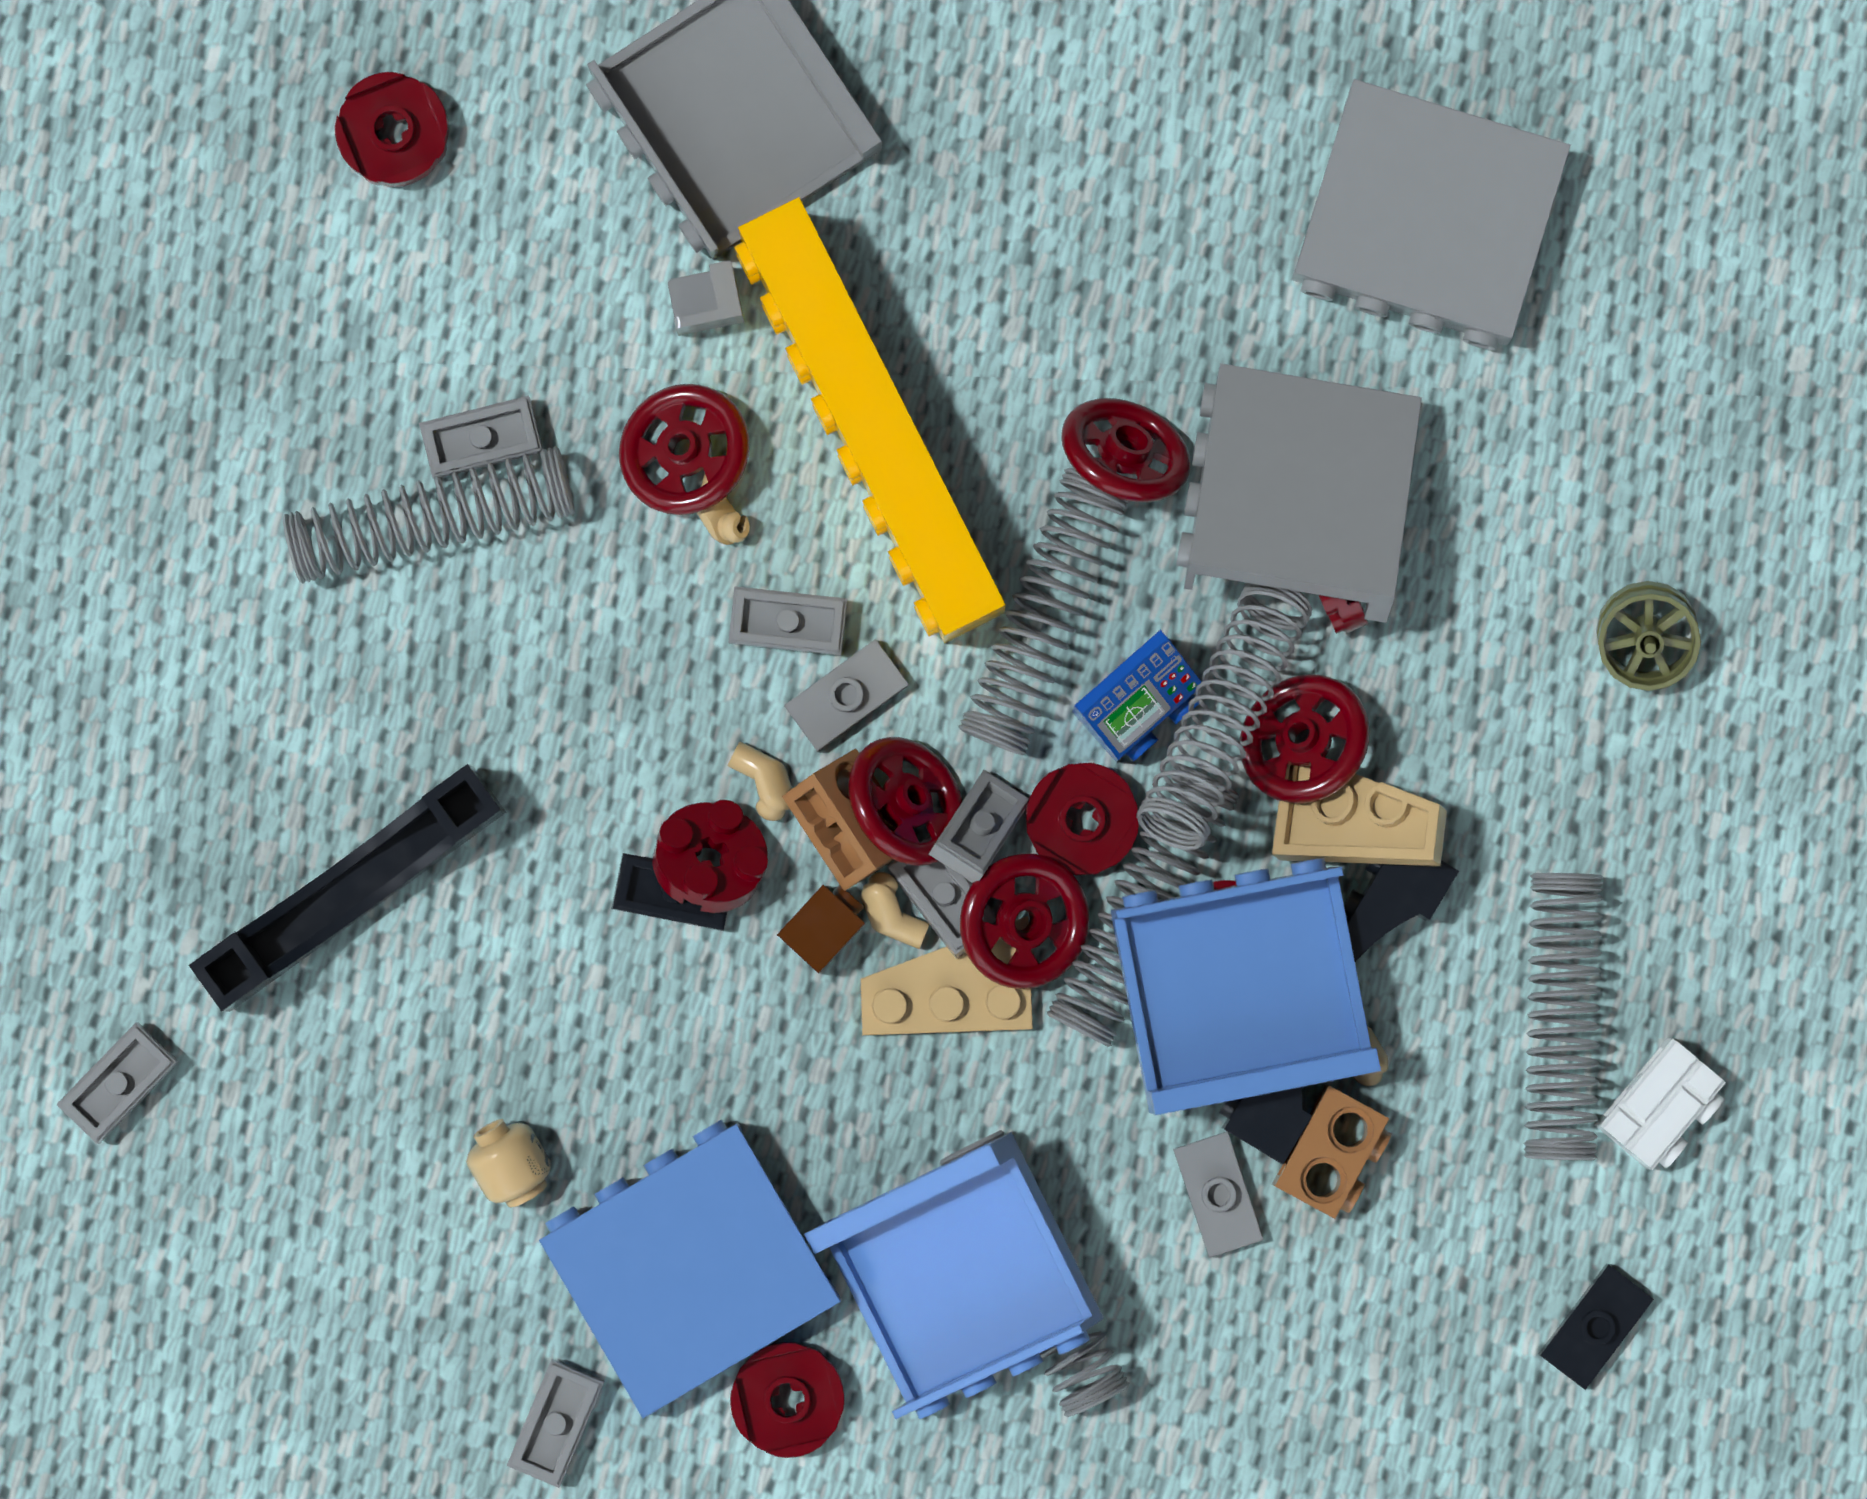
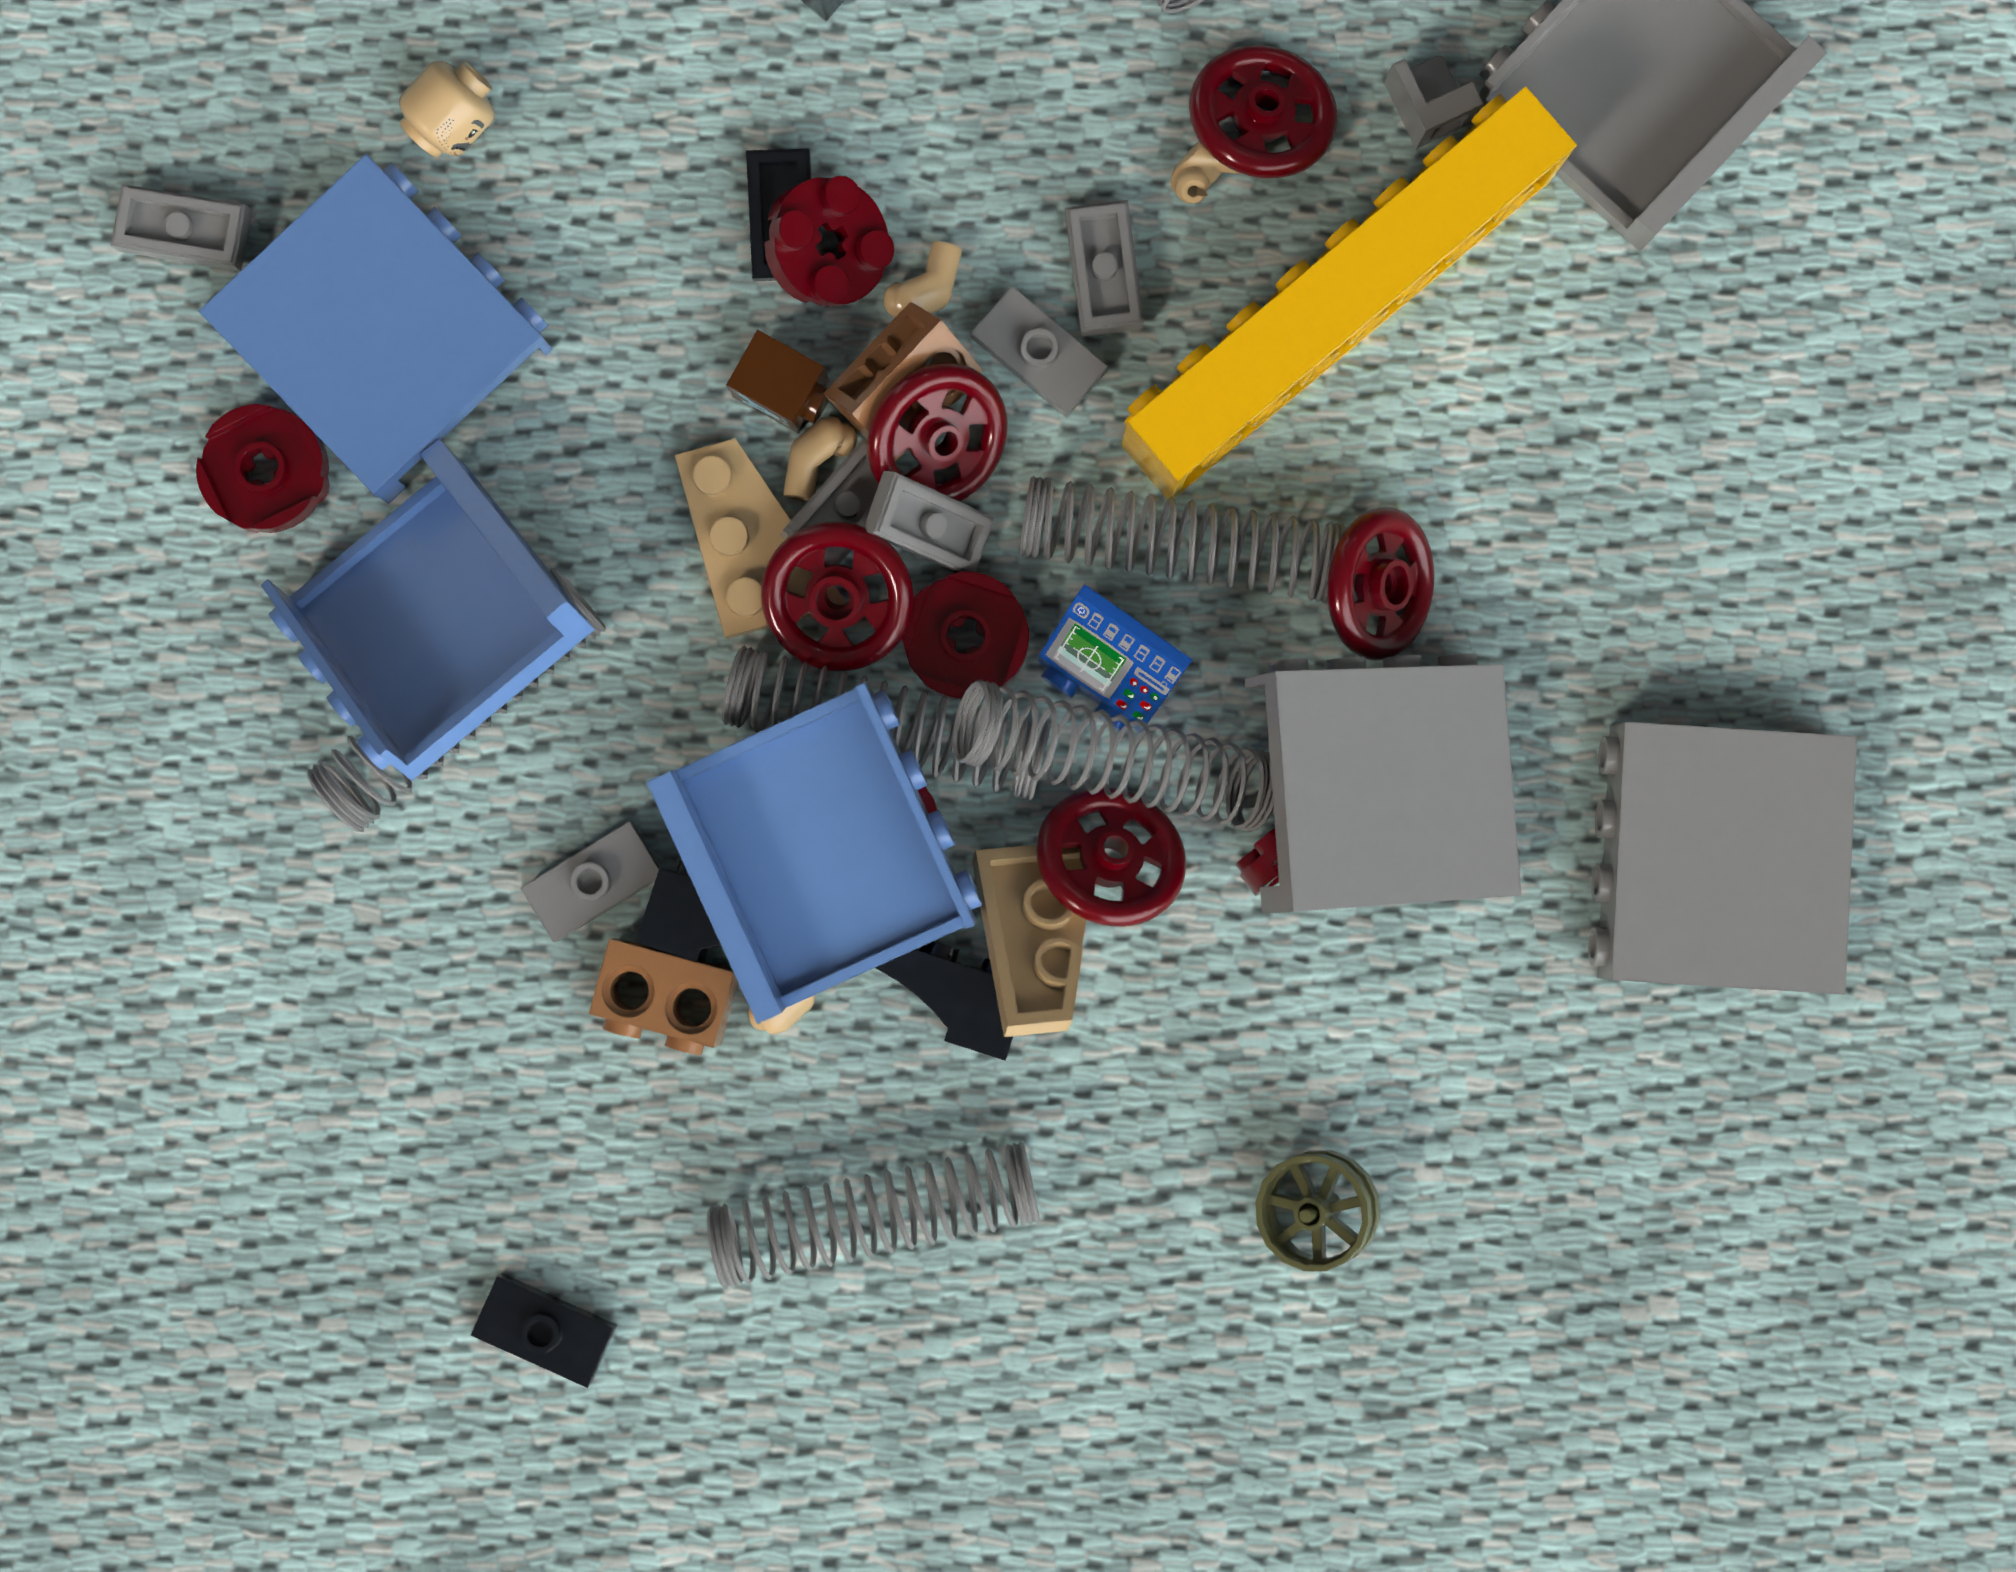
camera: 75 degrees right, 0 degrees up
(1662, 1105) = (801, 1347): white brick -> none

